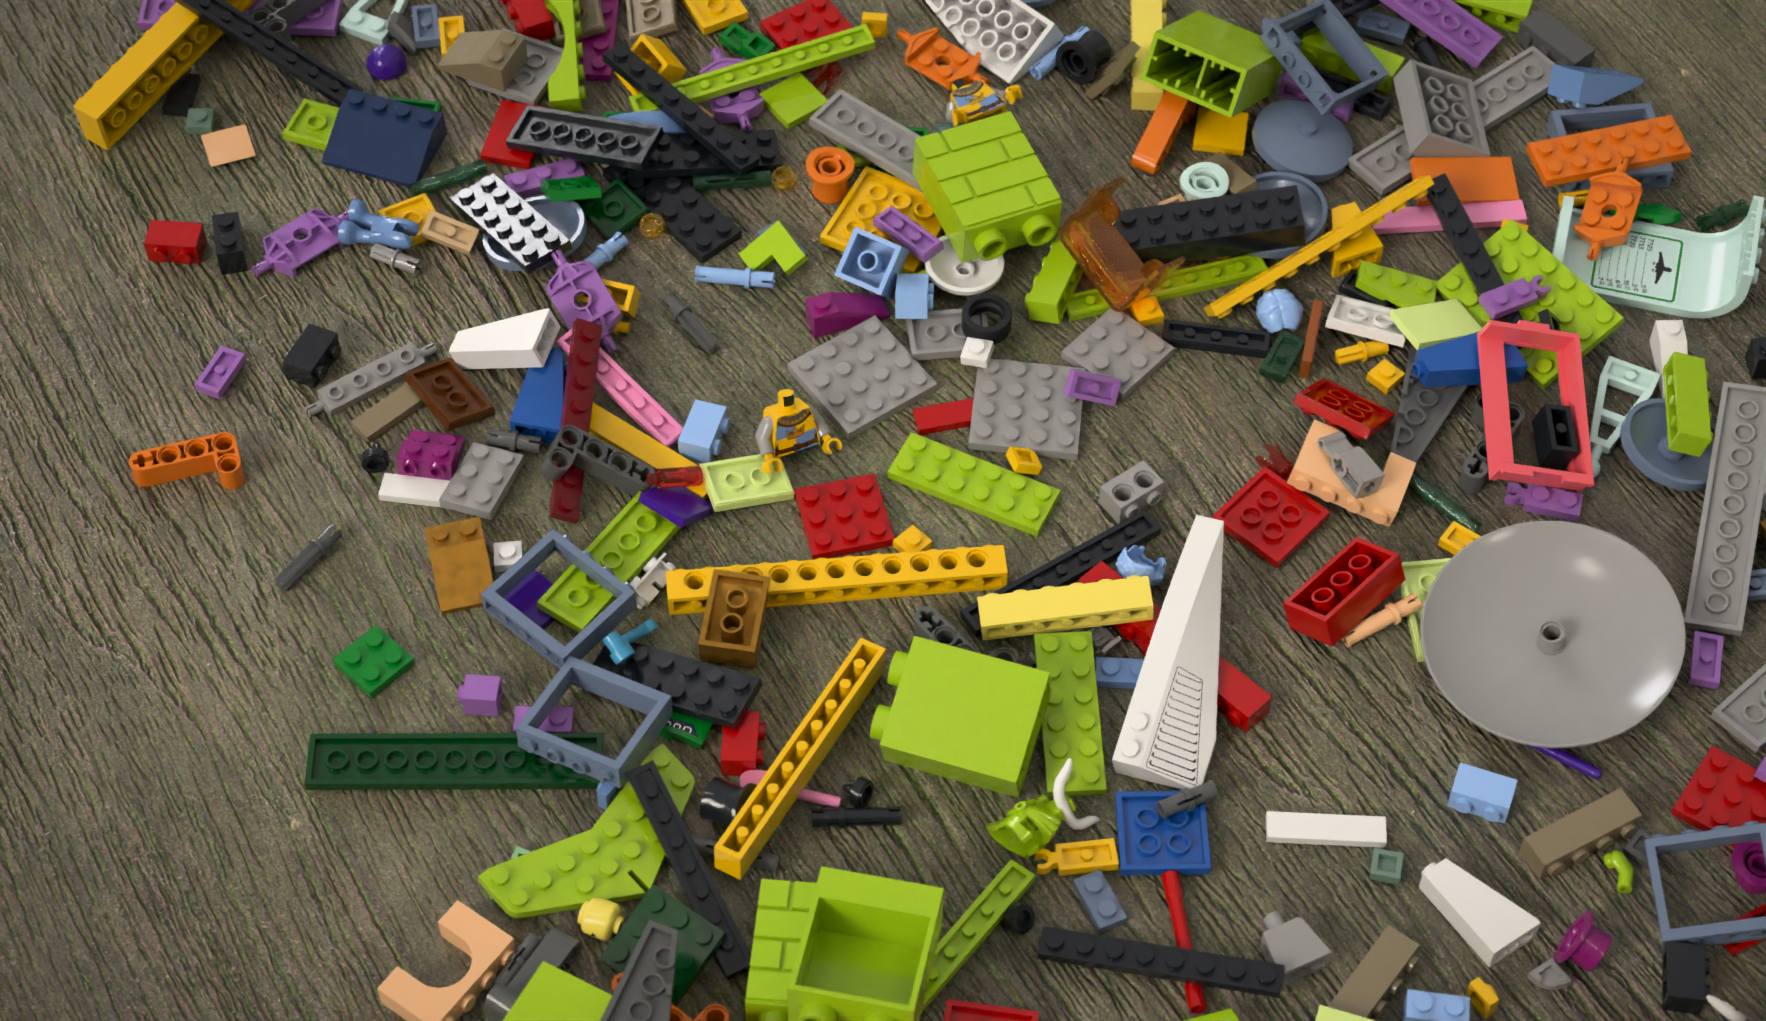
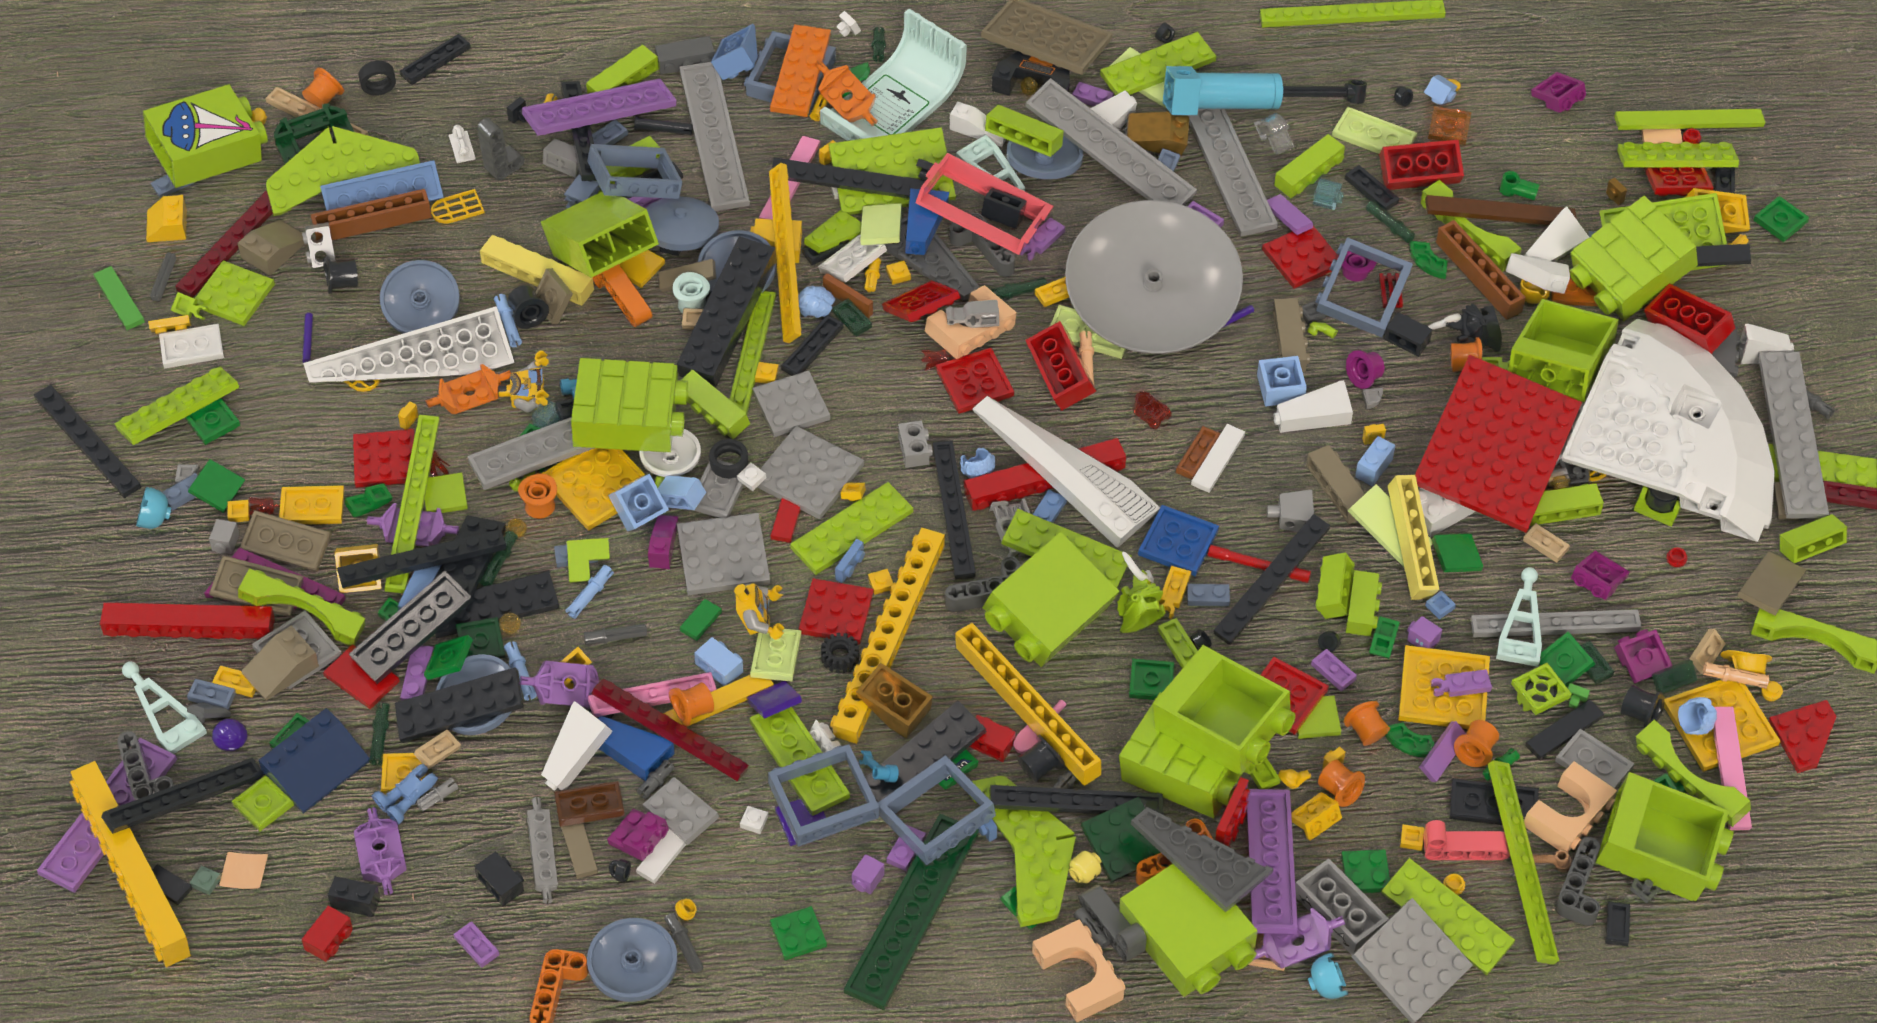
camera: 65 degrees left, 0 degrees up
(256, 514) = (632, 959): none -> sand blue dish
(360, 539) = (685, 909): none -> yellow plate
(459, 564) = (749, 849): pearl gold slope -> none
(601, 466) = (708, 733): dark grey beam -> none
(619, 423) = (691, 702): none -> orange piece
(676, 477) = (756, 688): clear red cylinder -> none
(754, 392) = (700, 619): none -> green tile
(778, 530) = (839, 663): none -> black tyre
(859, 792) = (1063, 686): black tile -> none
(867, 816) = (1077, 704): black pin -> none
(908, 234) = (624, 472): medium lavender tile -> none
(919, 498) = (848, 562): none -> medium blue plate
(936, 872) = (1149, 678): none -> green tile
(1065, 607) = (994, 513): light yellow brick -> none
(1092, 387) = (820, 426): medium lavender plate -> none
(1105, 253) = (729, 368): clear orange windscreen -> none
(1204, 793) = (1167, 514): dark grey pin -> none
(1320, 801) = (1197, 452): none -> dark orange tile
(1348, 723) = (1152, 411): none -> clear red piece
(1386, 866) = (1261, 439): sand green plate -> none
(1439, 113) = (711, 140): light grey slope -> none
(1471, 177) = (771, 144): orange tile -> none
(1482, 793) = (1237, 369): light blue brick -> none
(1492, 848) = (1280, 380): none -> light blue brick
(1512, 297) = (893, 173): medium lavender plate -> none
(1726, 172) = (848, 24): none -> white tile

